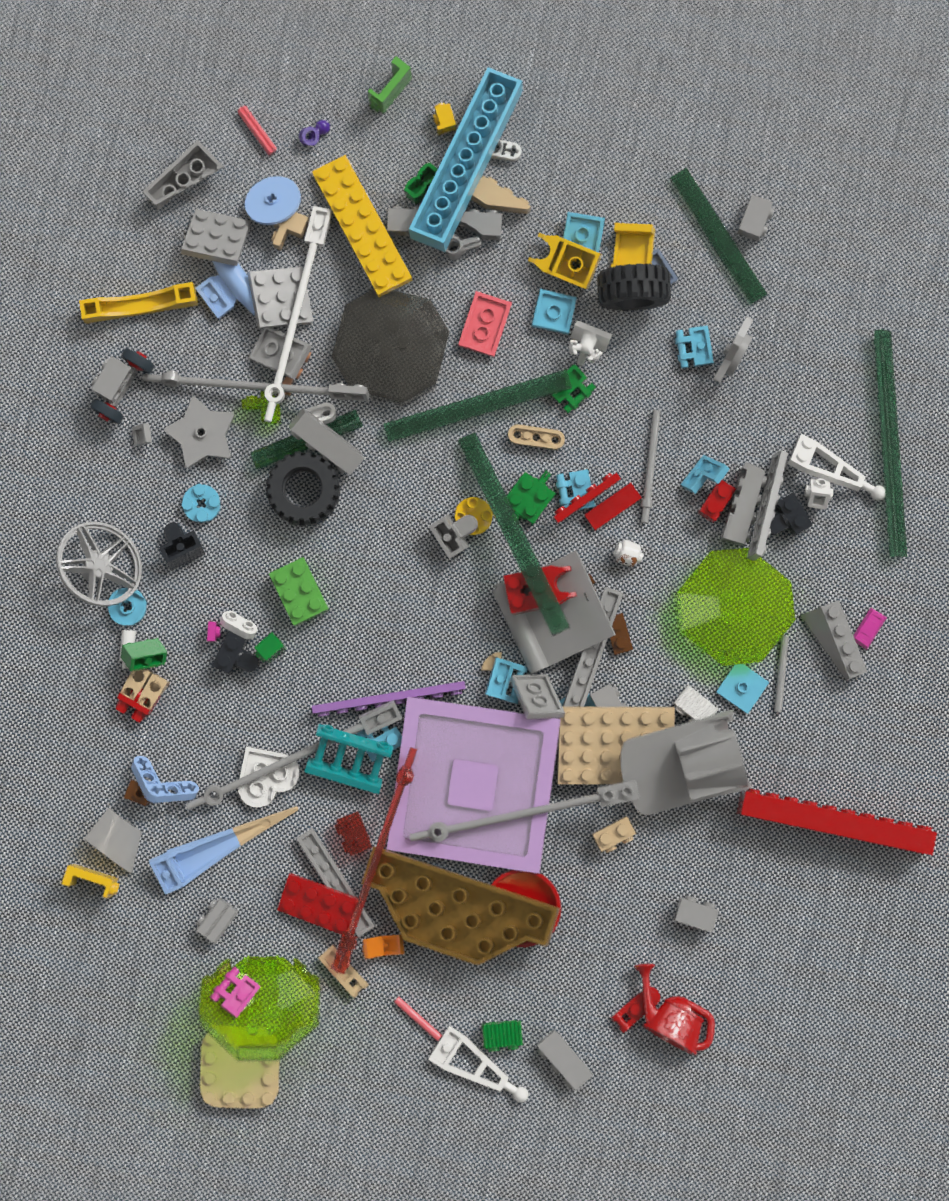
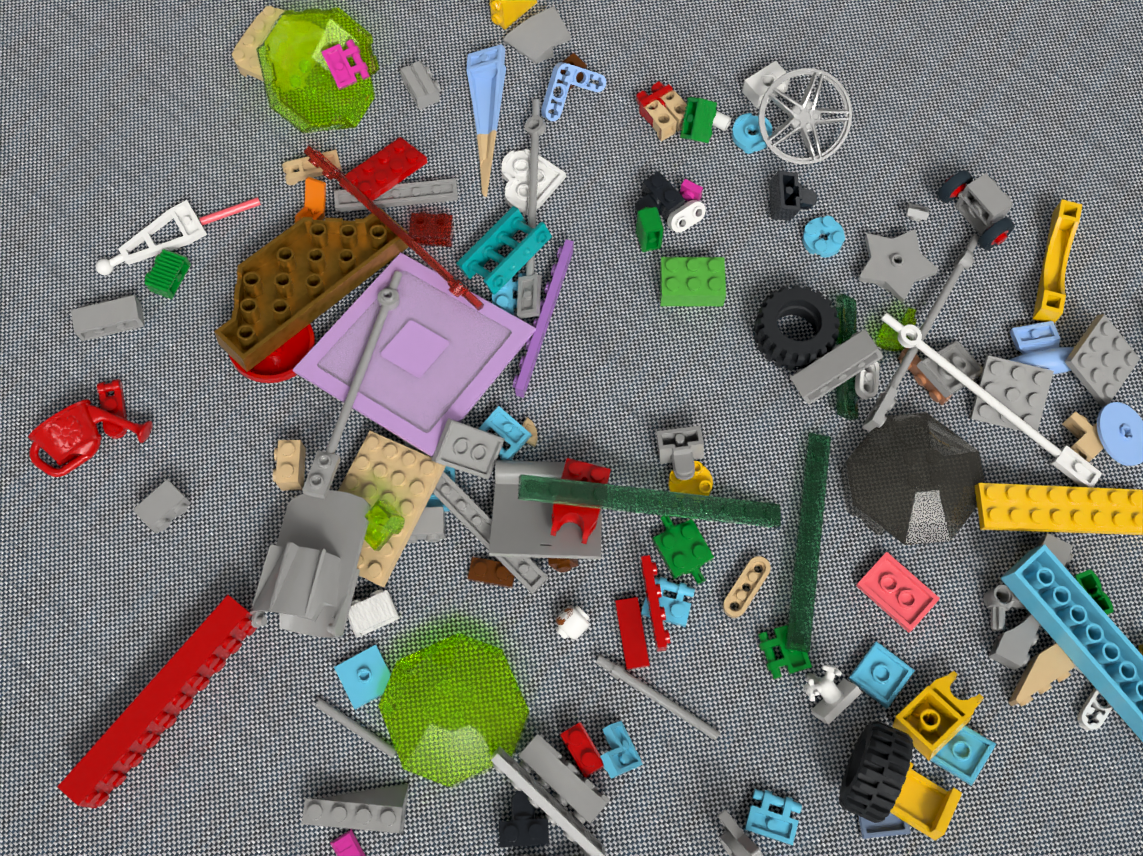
camera: 120 degrees right, 15 degrees down
(61, 613) = (757, 84): none -> white brick
(632, 725) = (383, 522): none -> clear neon green brick

